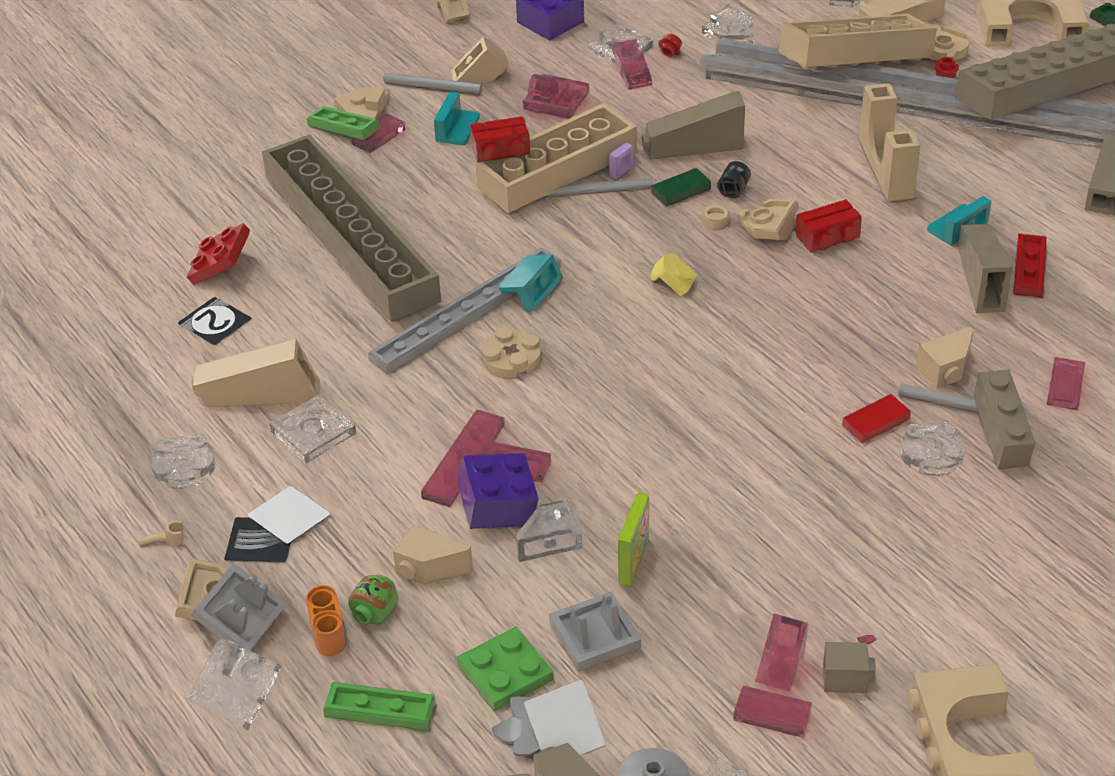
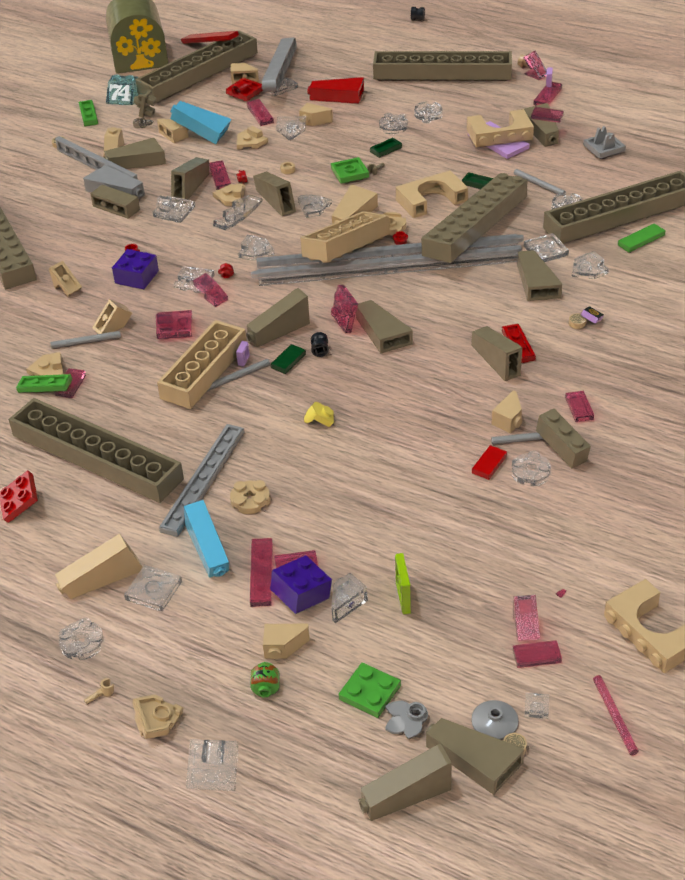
camera: 25 degrees left, 0 degrees up
(214, 320) = (39, 541): sticker -> none
(239, 608) = (186, 716): light grey plate -> none
(254, 543) = (164, 670): black sticker -> none
(288, 514) = (172, 647): white sticker -> none
(326, 620) = (244, 703): orange beam -> none
(379, 706) = (308, 742): bright green tile -> none
(412, 386) = (205, 539): none -> medium azure slope
(452, 123) = (118, 361): teal panel -> none
(500, 139) = (167, 362): red brick -> none
(533, 280) = (235, 444): teal panel -> none
(565, 718) = (428, 705): white sticker -> none
(595, 631) = (410, 646): light grey plate -> none
(715, 217) = (320, 371): tan tile -> none
(772, 220) = (355, 363): tan plate -> none
(796, 139) = (344, 308): none -> clear pink plate
(828, 225) = (393, 355): red brick -> none
(840, 178) = (382, 327): none -> dark tan slope
(847, 667) = (564, 612): dark tan brick -> none
(890, 152) = (412, 307): tan arch -> none
(948, 226) = (463, 329): teal panel -> none

